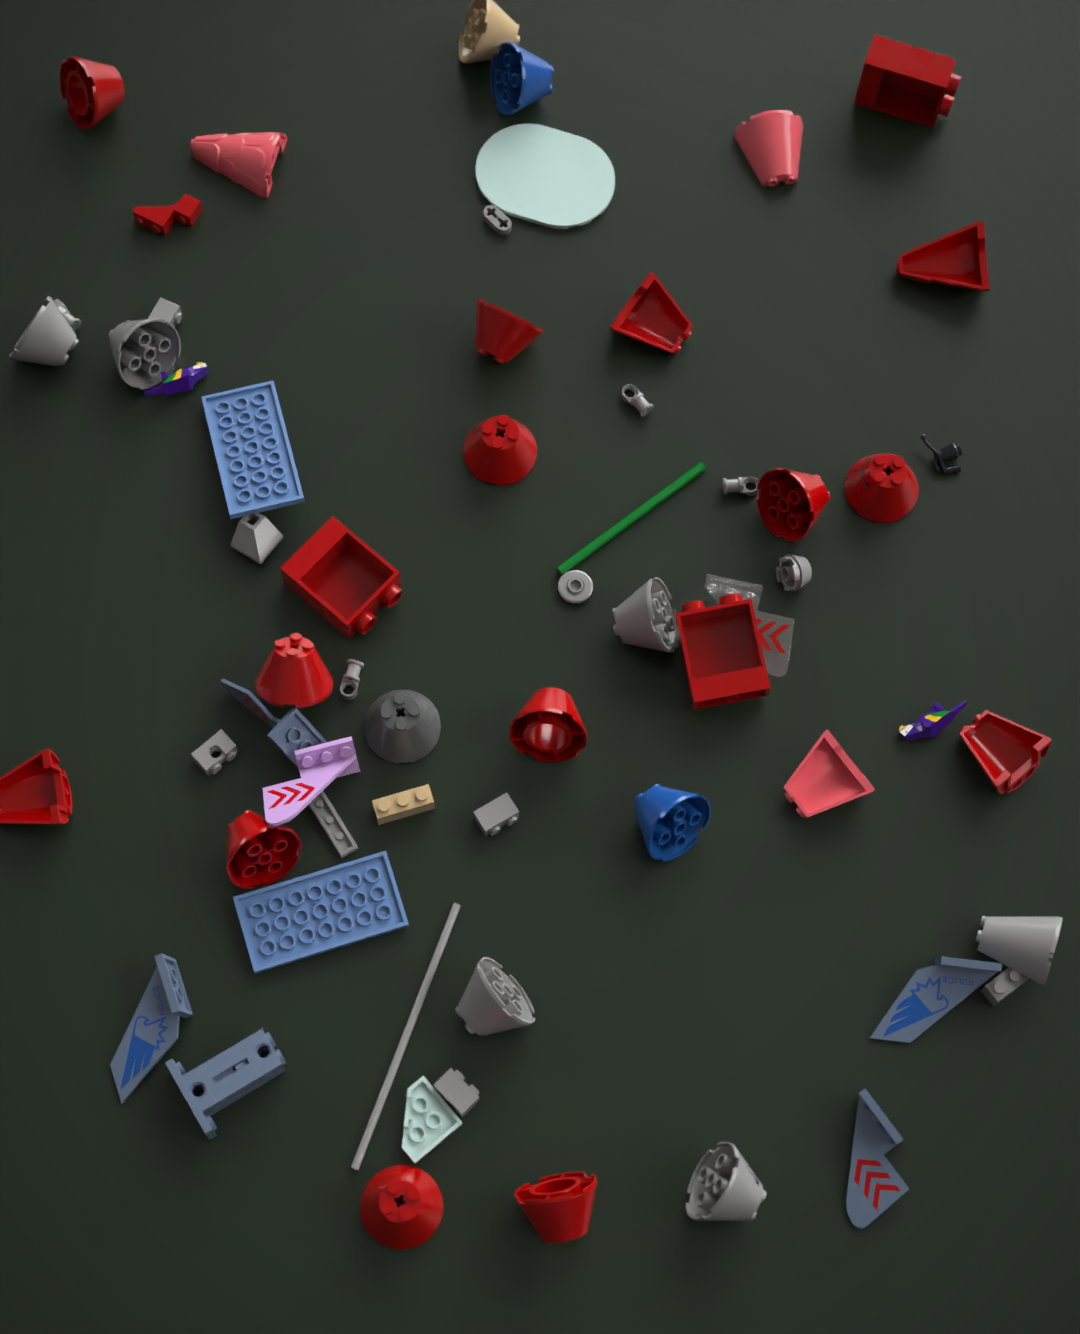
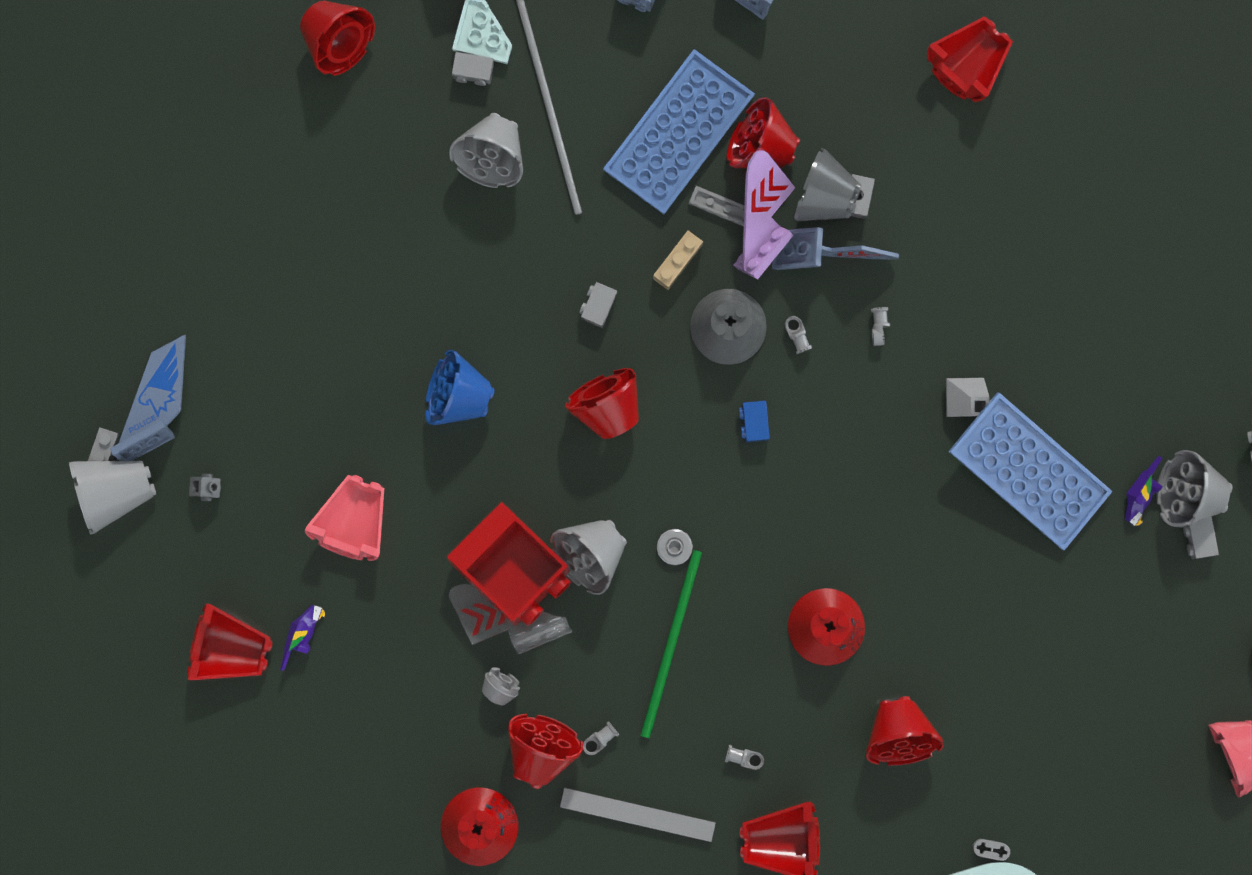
camera: 145 degrees right, 15 degrees up
(239, 764) = (828, 191): none -> dark grey cone
(286, 632) = (880, 322): none -> light grey connector
(294, 674) = (838, 293): red cone -> none
(342, 578) = (867, 410): red brick -> none
(438, 635) = (755, 421): none -> blue brick
(724, 1187) = (219, 132): light grey cone -> none
(750, 416) = (637, 814): none -> light grey tile
(872, 1179) = (113, 223): sand blue piece -> none
(936, 892) = (205, 487): none -> dark grey brick

